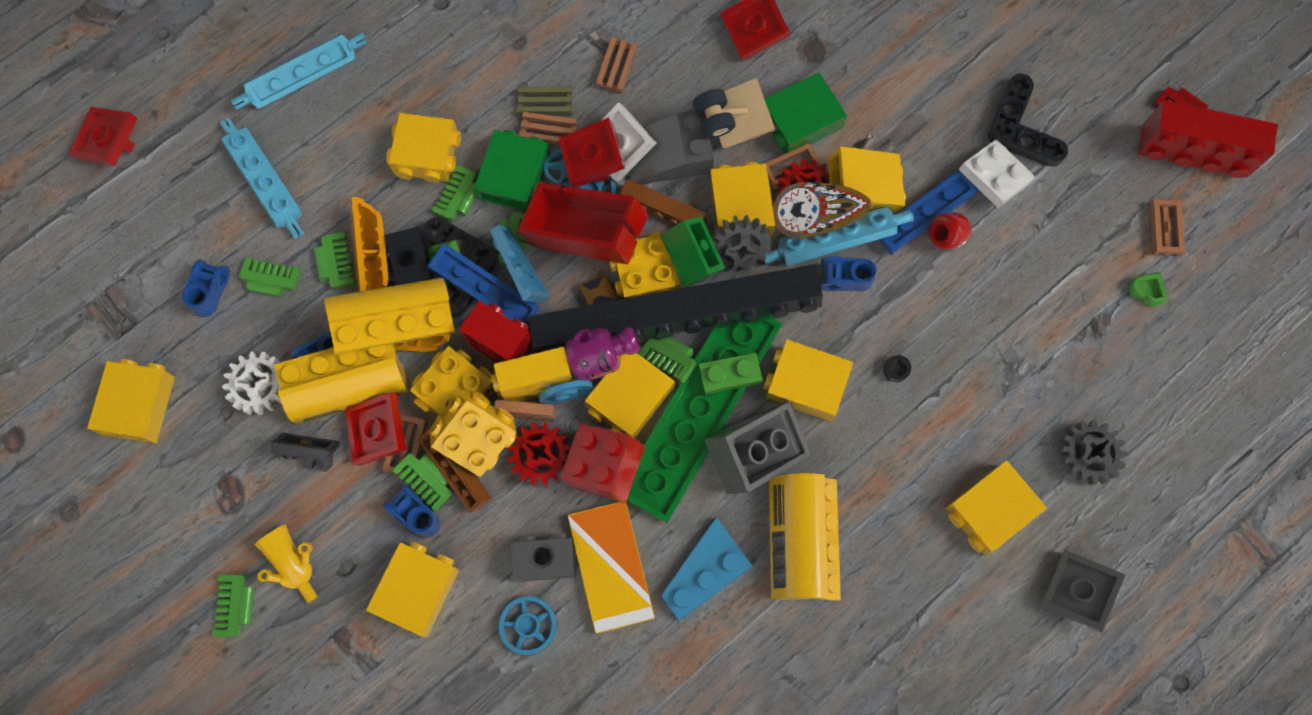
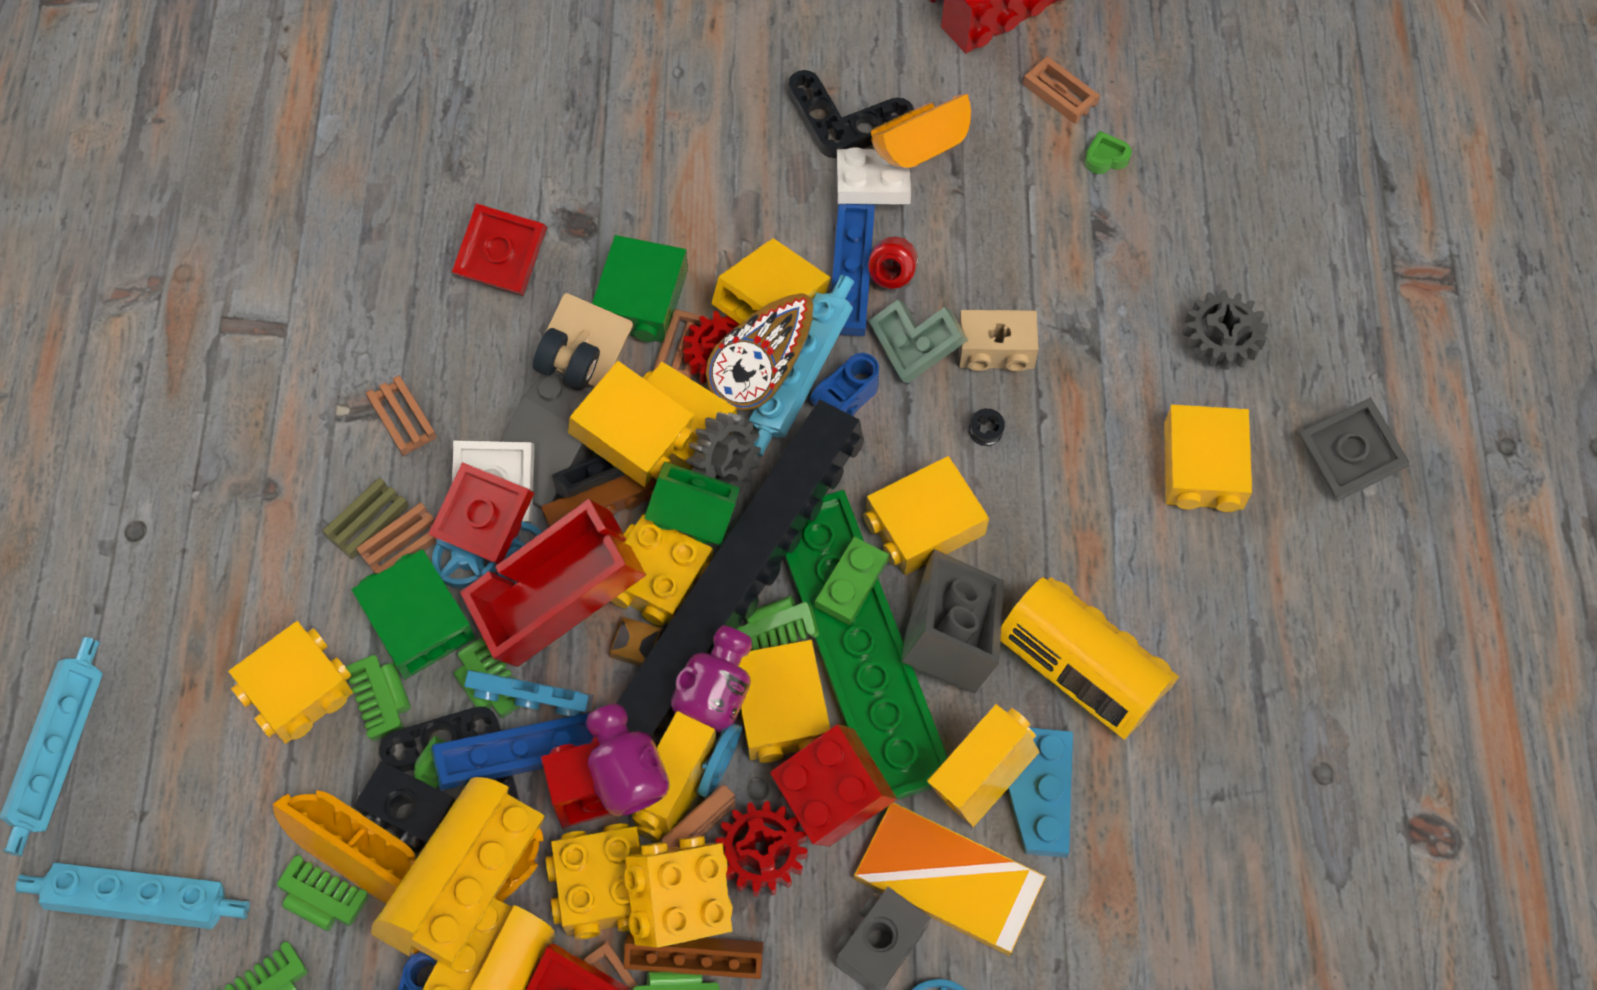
camera: 50 degrees left, 10 degrees down
(504, 345) = (625, 764): none -> magenta piece
(670, 187) = (584, 476): none -> black slope
(681, 533) = (985, 764): none -> yellow brick
(708, 180) = (631, 424): none -> yellow brick
(907, 284) = (916, 347): none -> sand green plate
(955, 314) = (999, 339): none -> tan brick
(1051, 175) = (923, 132): none -> light orange brick

